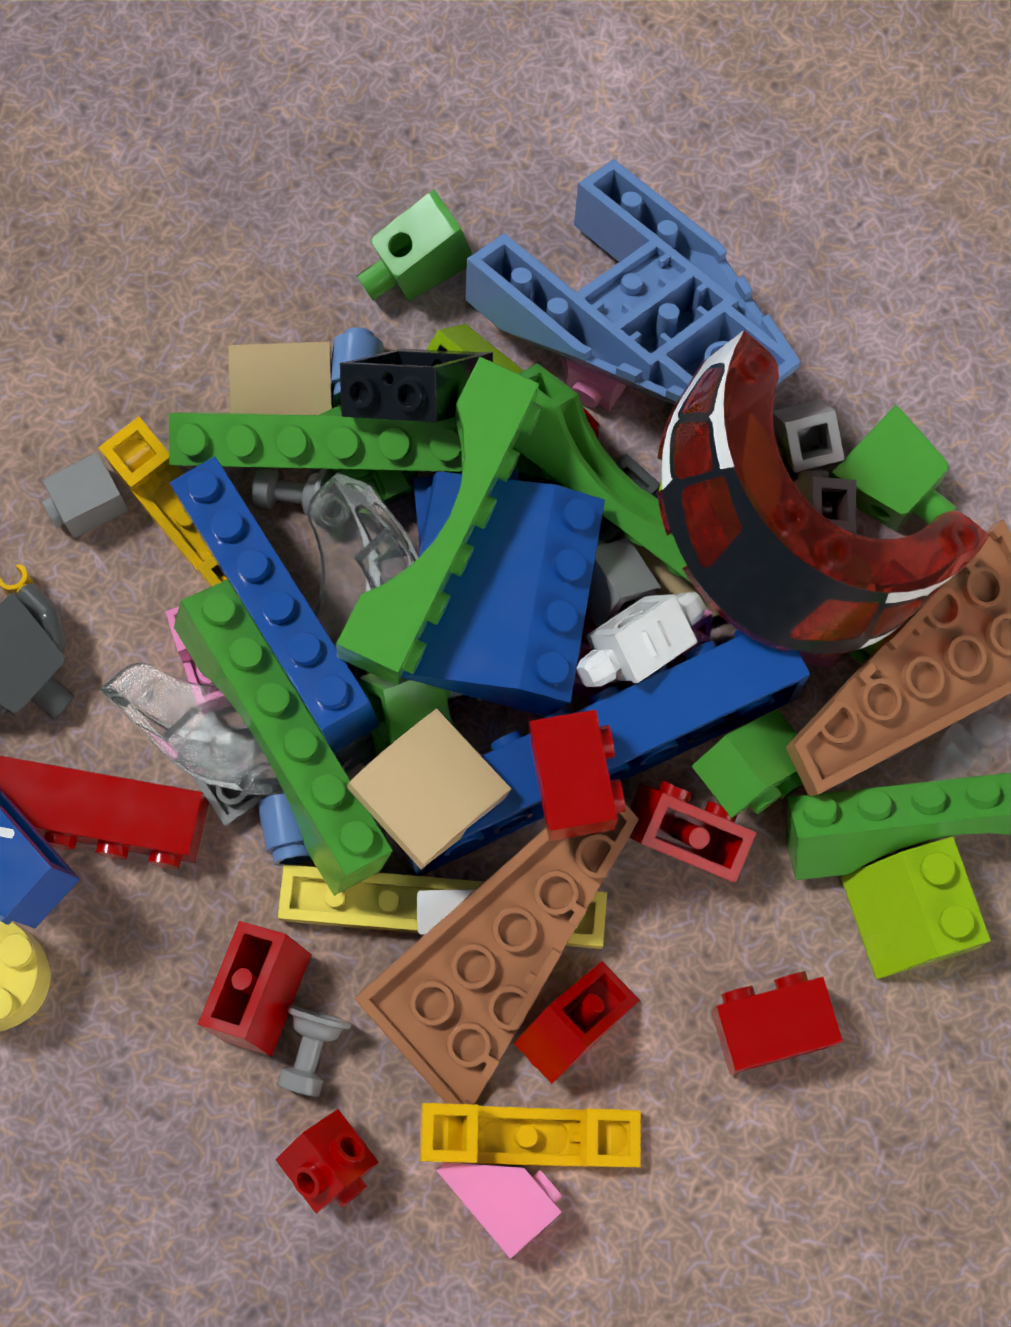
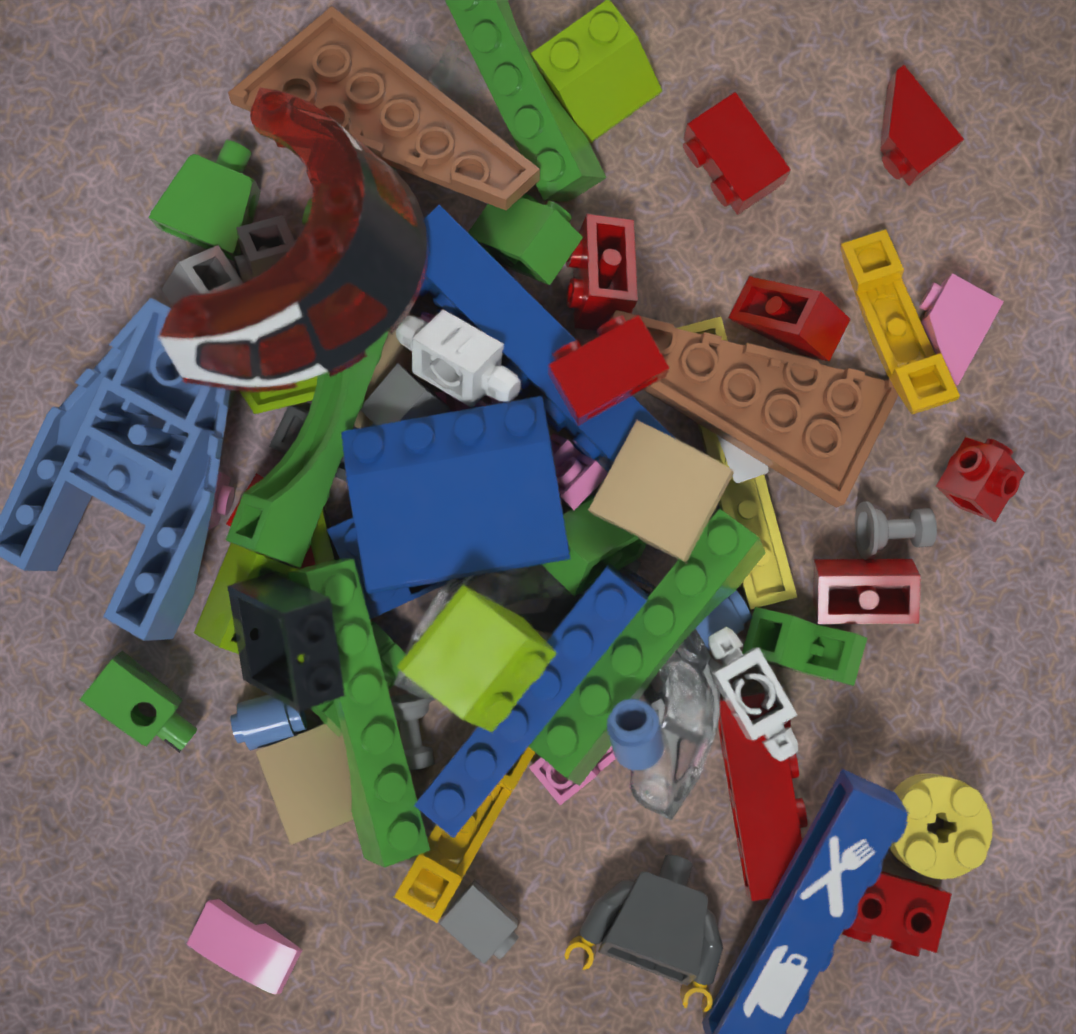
camera: 110 degrees left, 10 degrees up
(134, 830) = (779, 740): none -> white piece
(147, 279) = (242, 948): none -> bright pink slope
(195, 679) = (635, 734): none -> medium blue brick
(230, 893) = (806, 646): none -> bright green brick
(326, 545) = (477, 659): none -> lime slope
(391, 618) = (314, 551): bright green arch -> none
(486, 721) = (575, 472): none -> bright pink slope
(740, 1238) = (914, 130): none -> red slope

